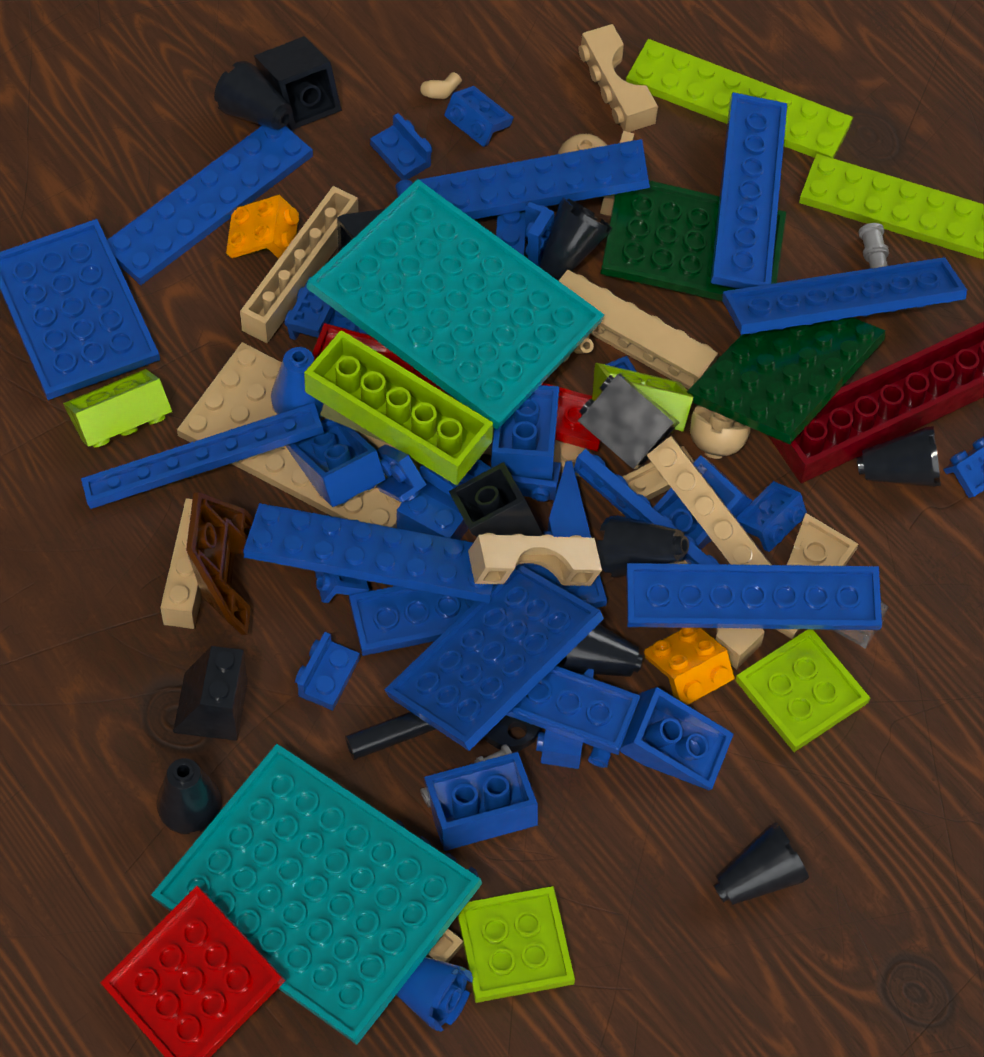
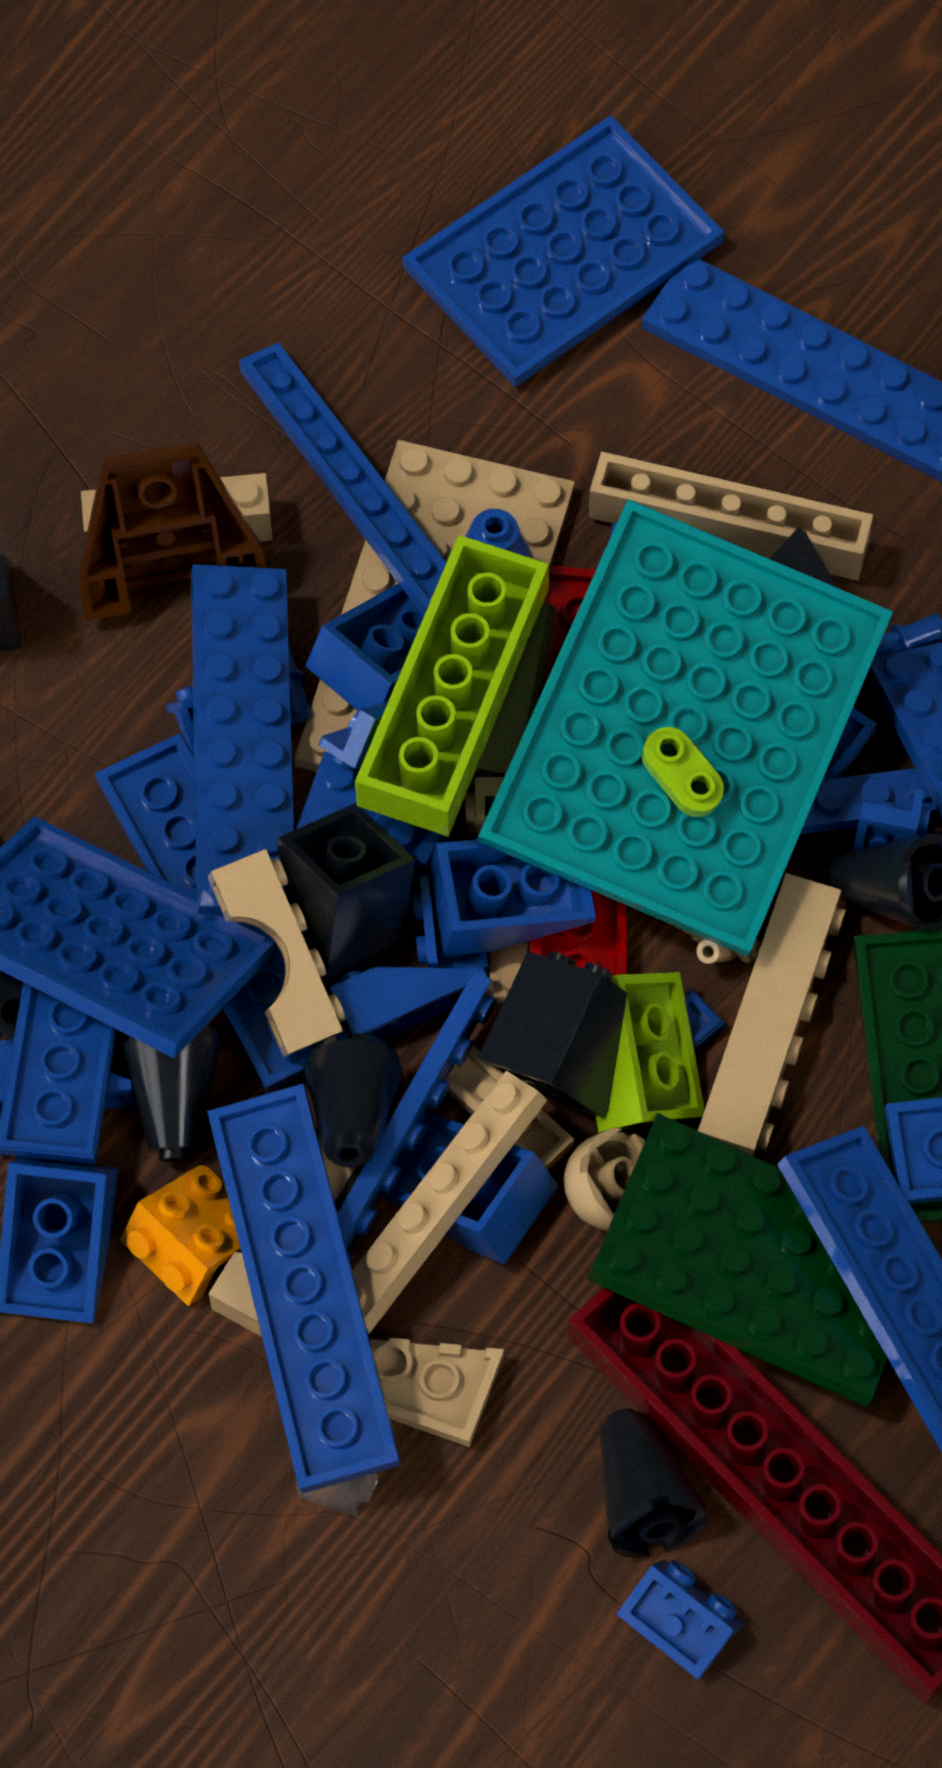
camera: 80 degrees right, 5 degrees up
(118, 408) = (409, 353): lime slope -> none
(262, 225) = (787, 453): light orange bracket -> none
(326, 672) = (55, 739): blue bracket -> none
(492, 308) = (678, 772): none -> lime plate
(773, 514) = (489, 1302): blue bracket -> none
(802, 689) = (188, 1408): lime plate -> none

